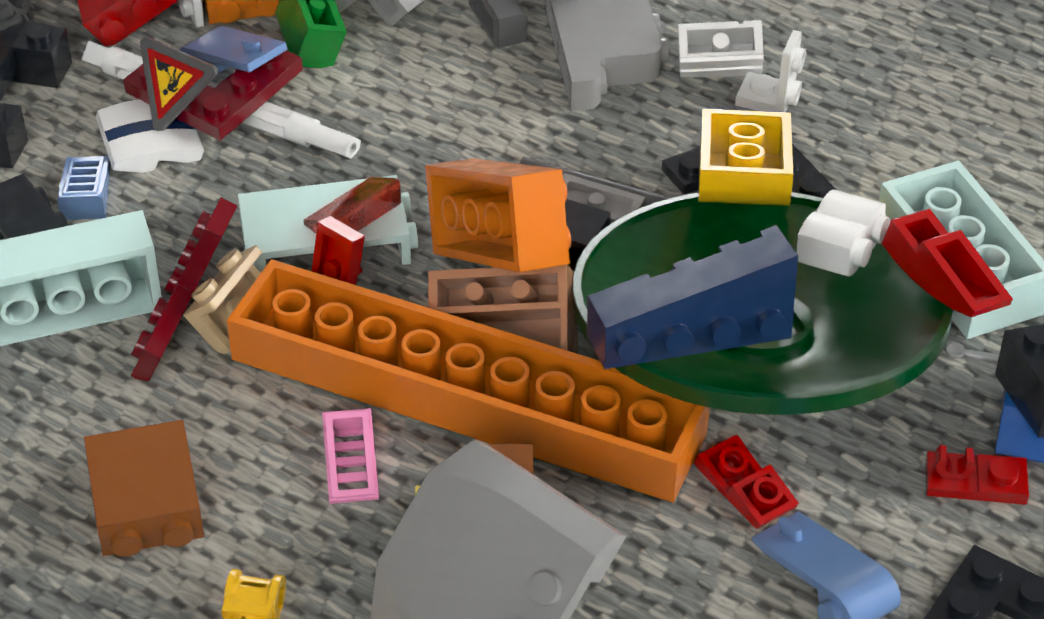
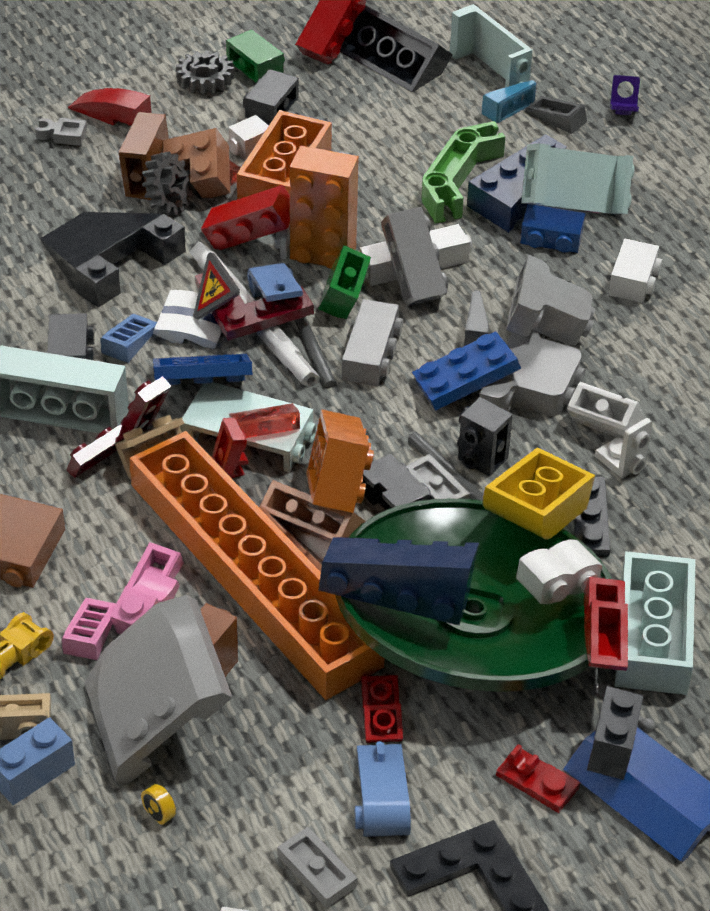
camera: 30 degrees right, 0 degrees up
(228, 178) = (203, 368): none -> blue plate
(329, 577) = (85, 646): none -> bright pink slope
(330, 116) = (315, 352): none -> dark grey bar
(376, 490) = (136, 601): none -> bright pink arch
(393, 78) = (372, 343): none -> brick
(533, 64) = (466, 370): none -> blue plate
(618, 126) = (484, 436): none -> black brick

